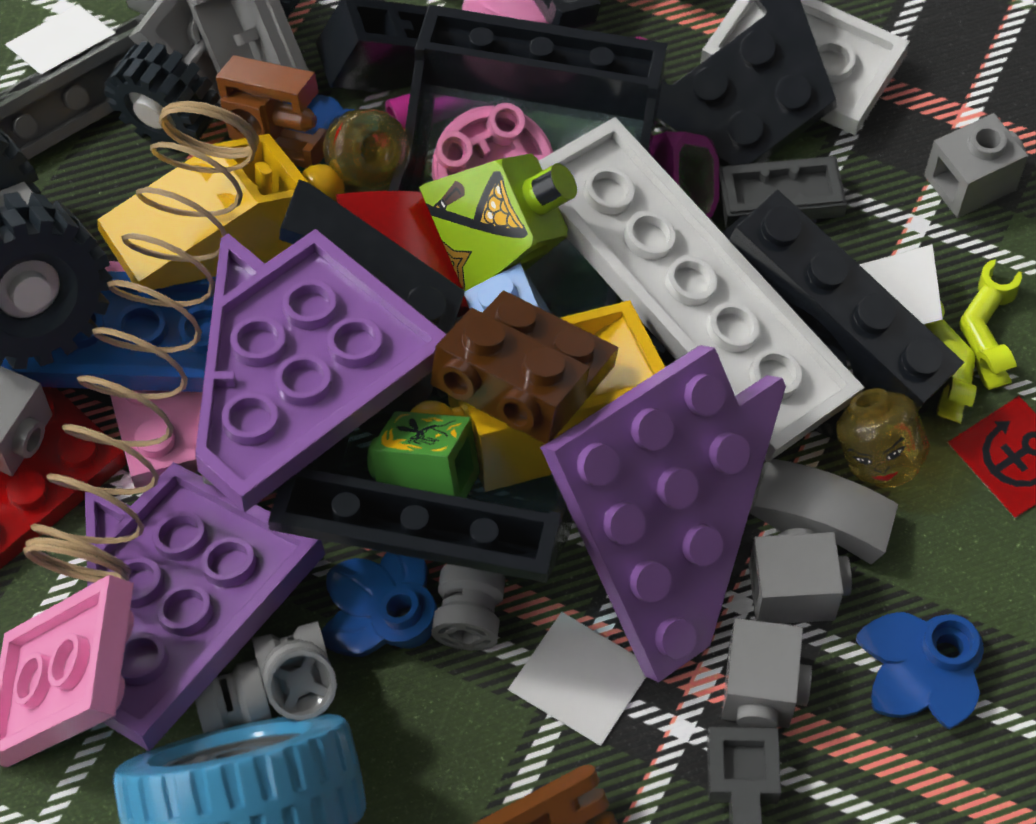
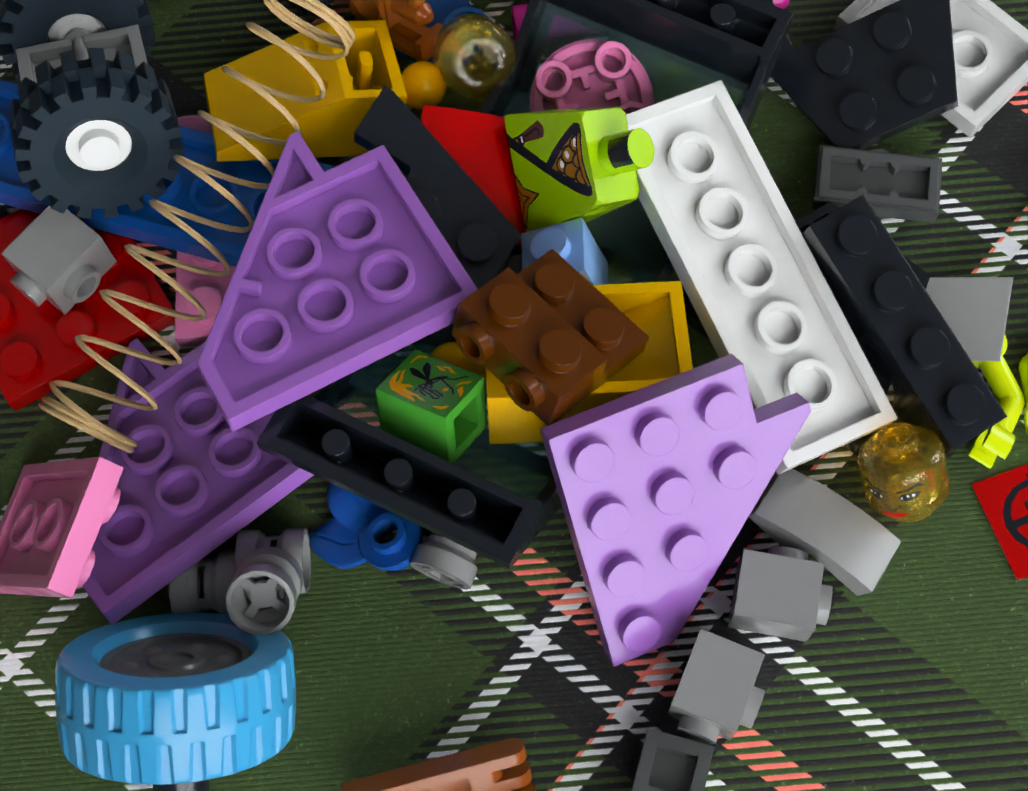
camera: 20 degrees right, 10 degrees up
(579, 678) = (542, 639): white sticker -> none
(691, 164) = (788, 144): rock -> none
(915, 671) = (869, 718): blue plate -> none

